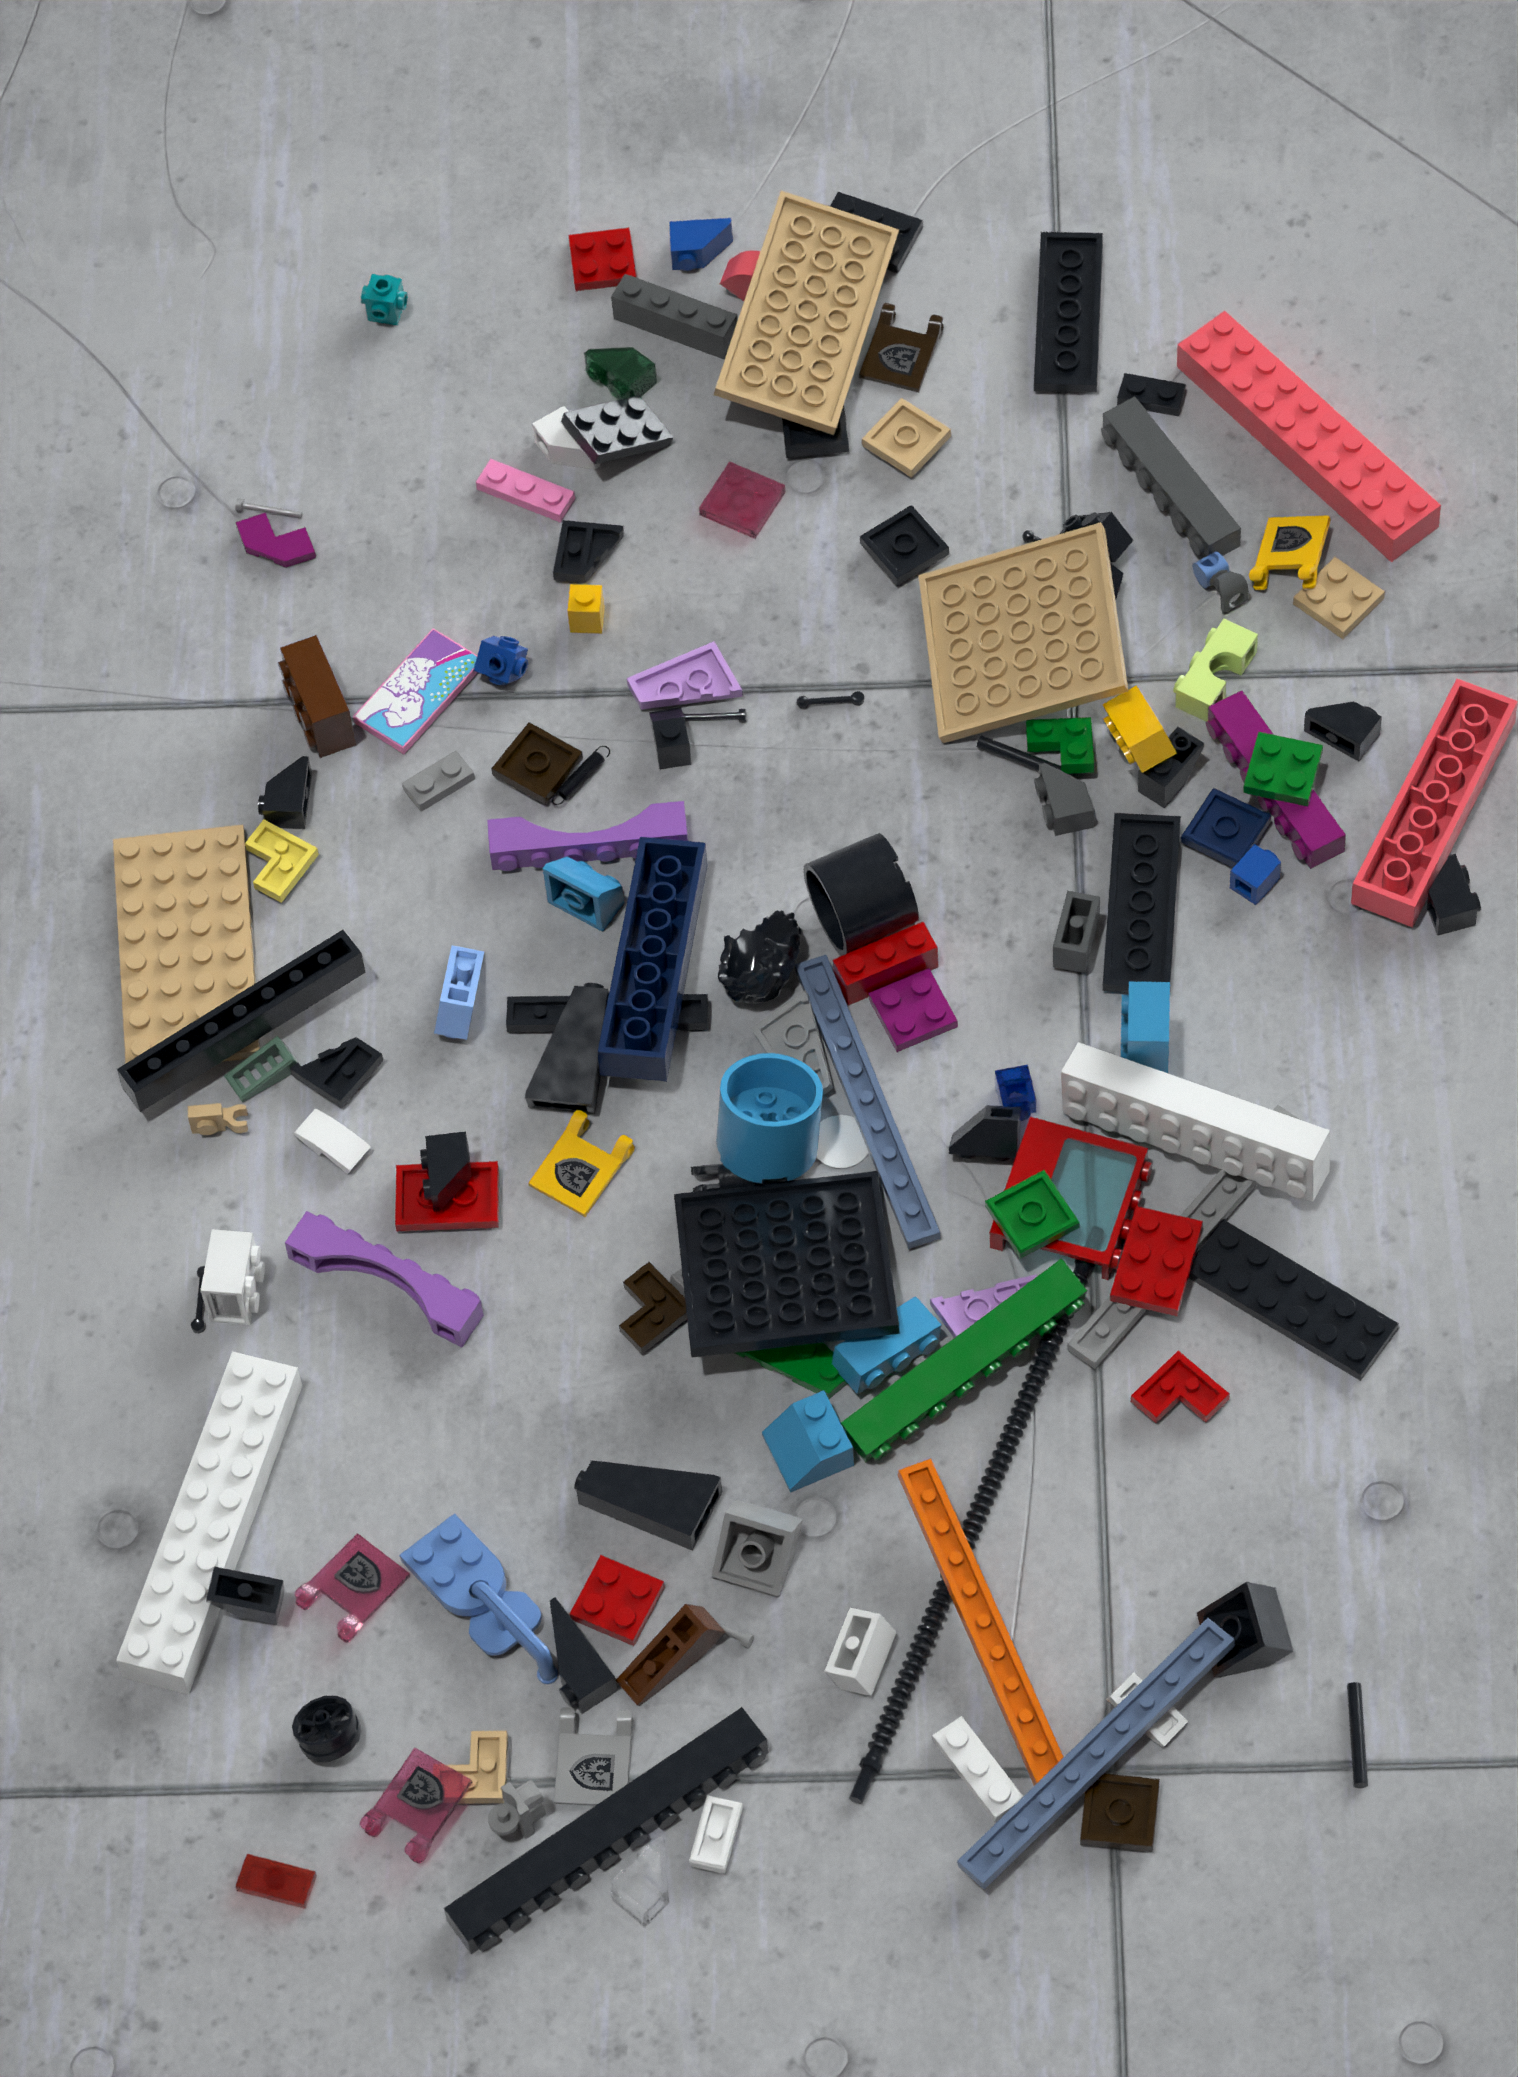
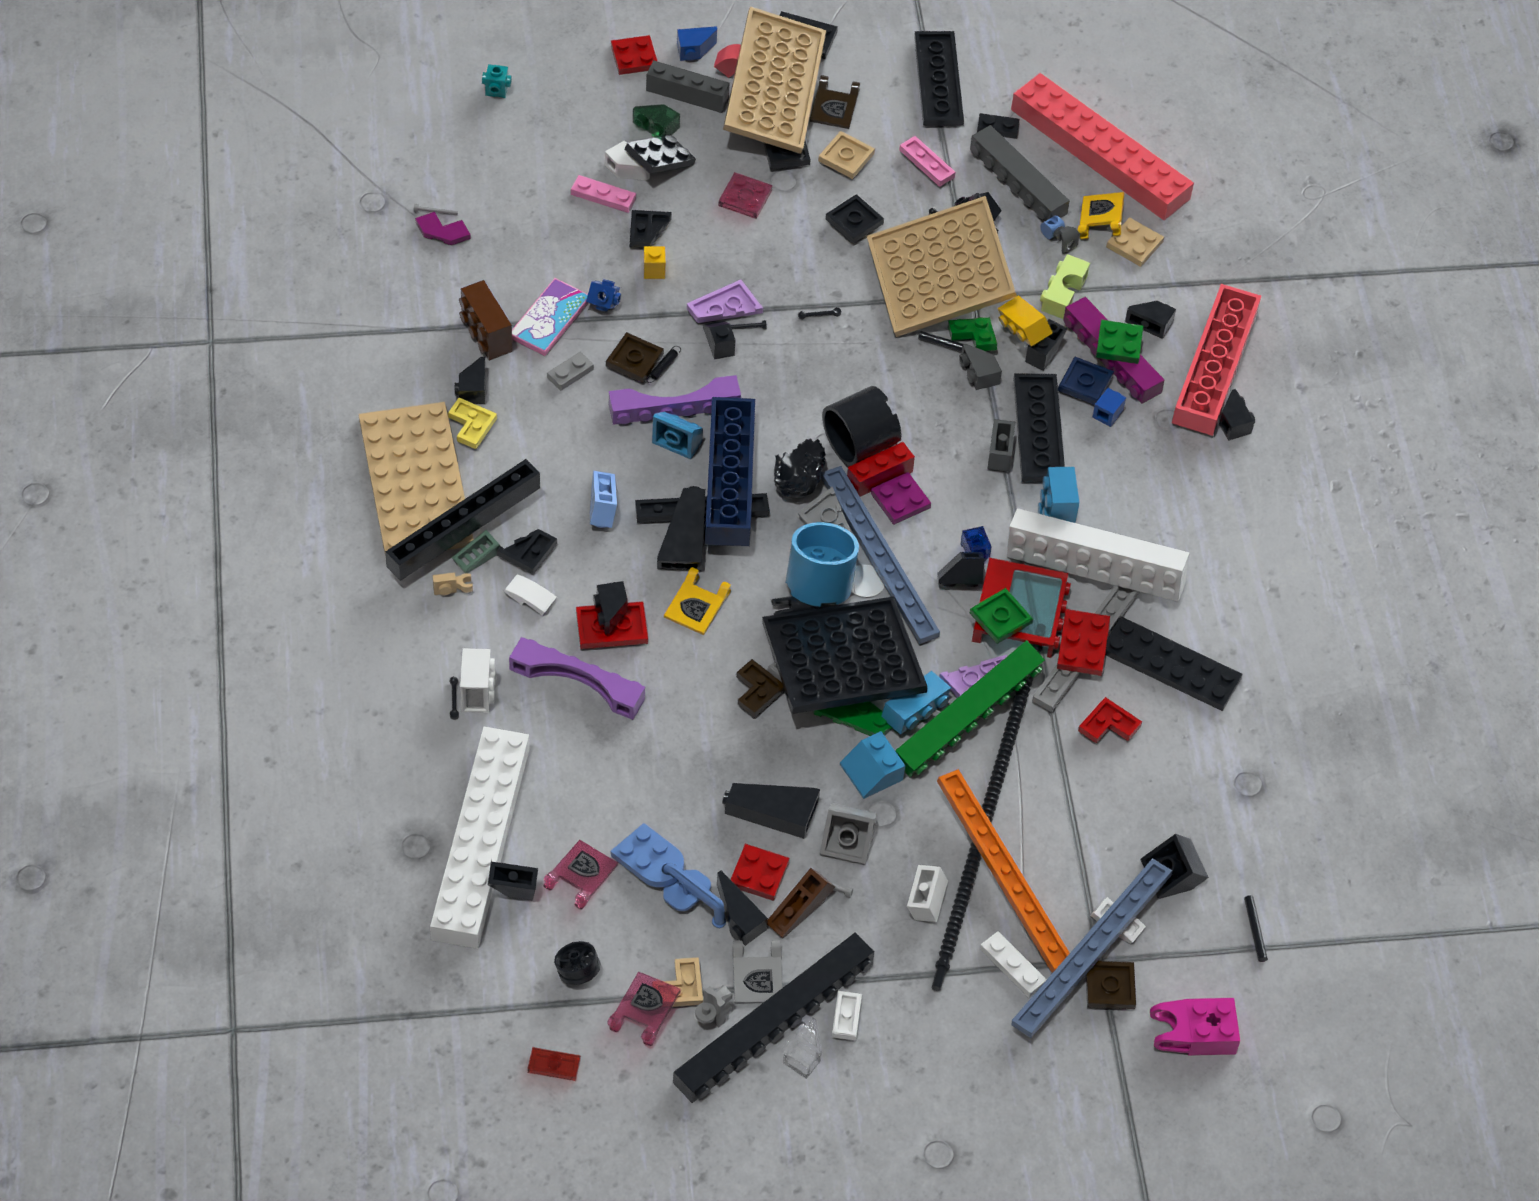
camera: 15 degrees left, 5 degrees down
(1031, 452) = (927, 161): none -> bright pink plate
(1233, 1883) = (1198, 1026): none -> dark pink brick

